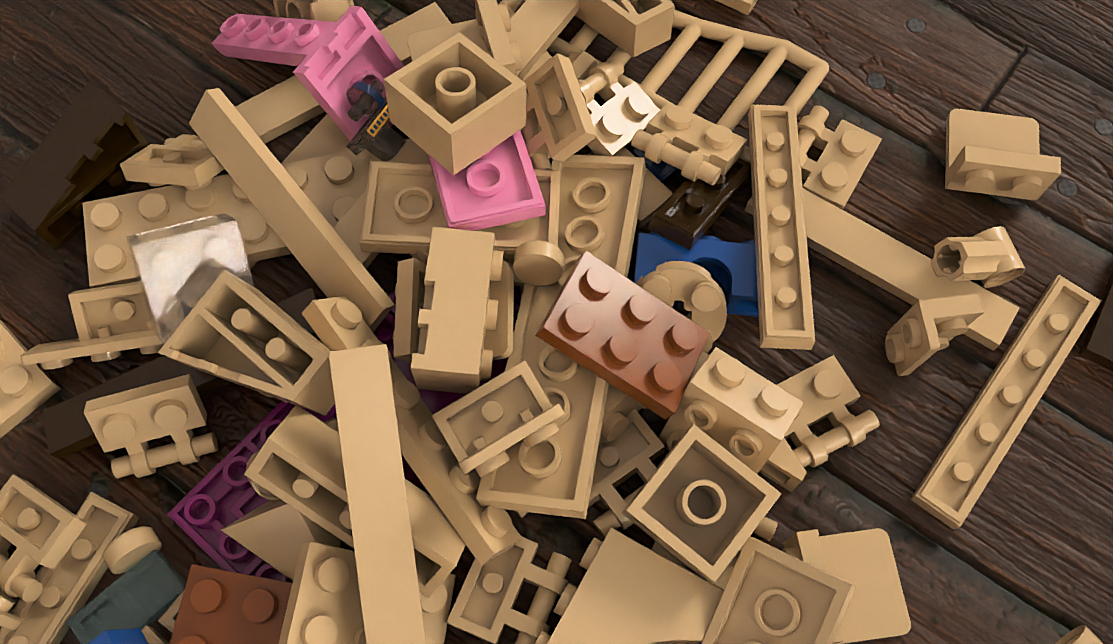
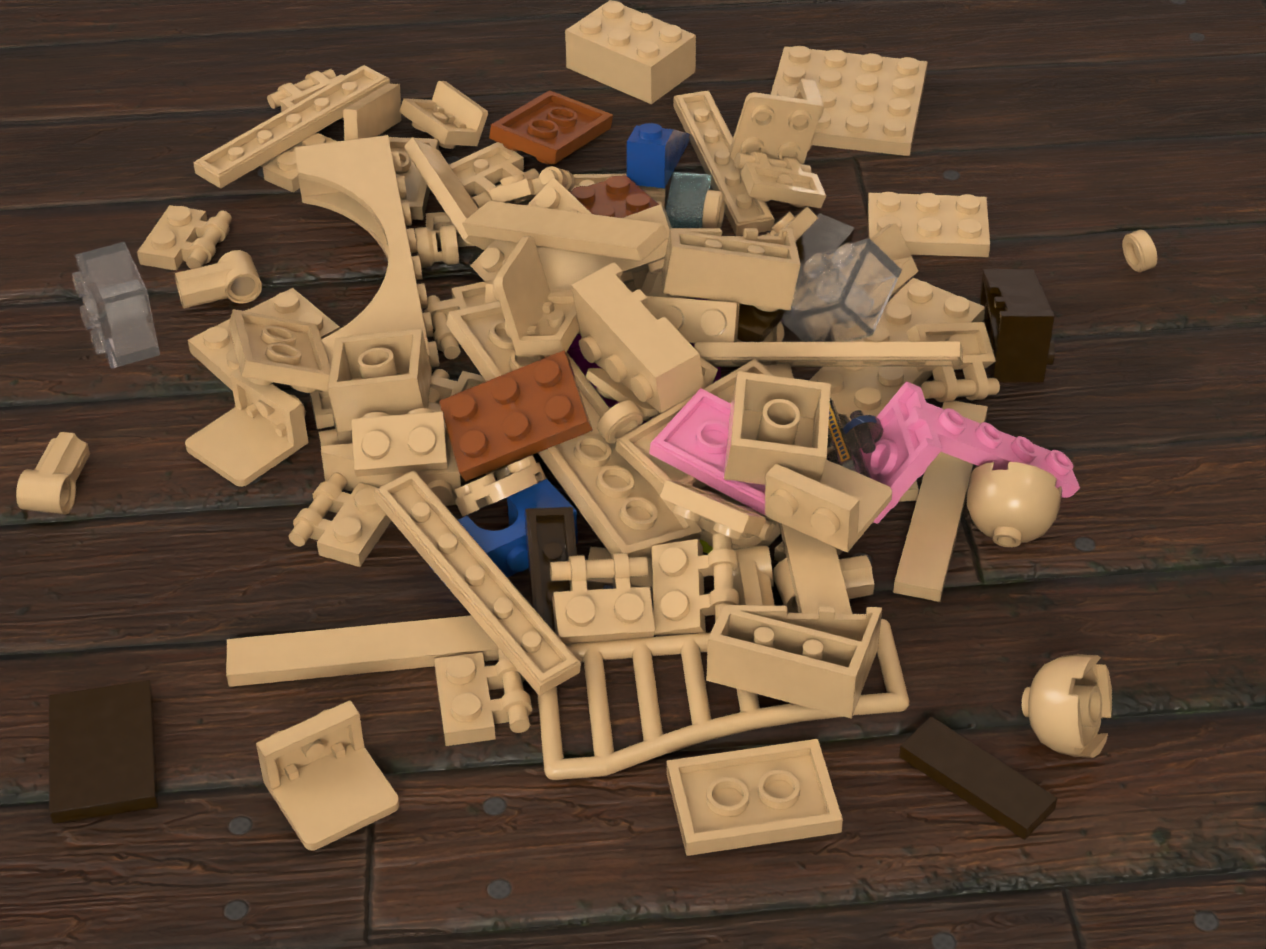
camera: 140 degrees right, 25 degrees down
(929, 328) = (292, 583): tan bracket -> none
(983, 257) = (279, 687): tan piece -> none
(1005, 403) = (195, 627): tan tile -> none

